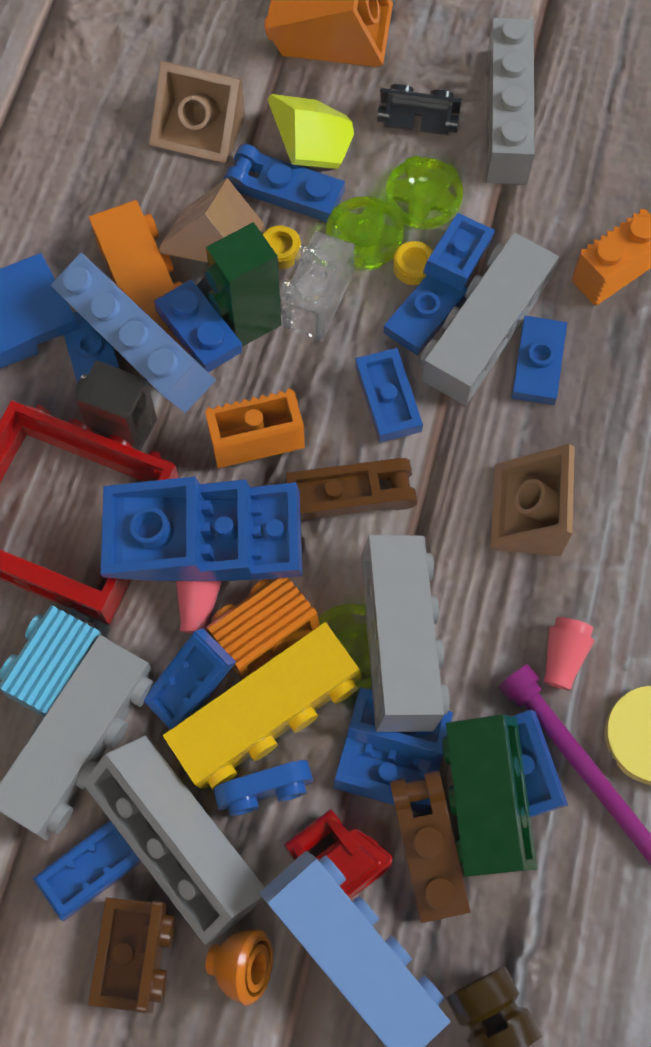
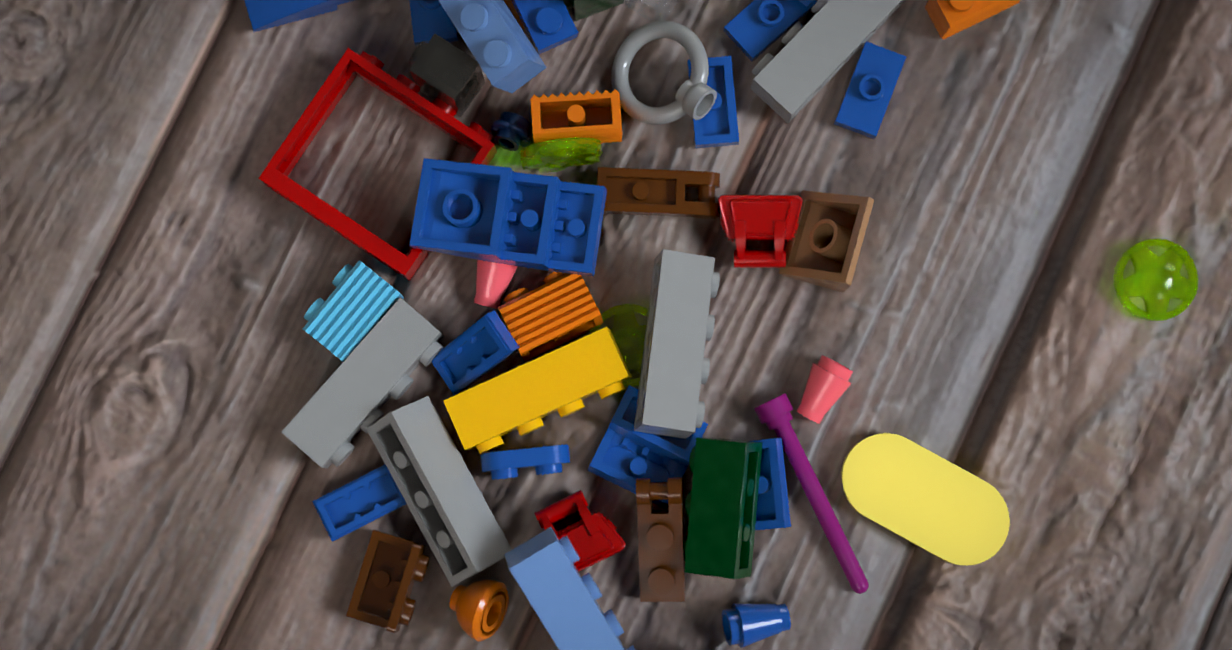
camera: 10 degrees right, 15 degrees up
(191, 455) = (511, 131): none -> dark blue plate
(246, 459) = (561, 153): none -> clear neon green wheel
(368, 386) = (692, 97): none -> light grey piece
(459, 495) = (760, 219): none -> red piece
(552, 922) = (751, 623): none -> blue cone

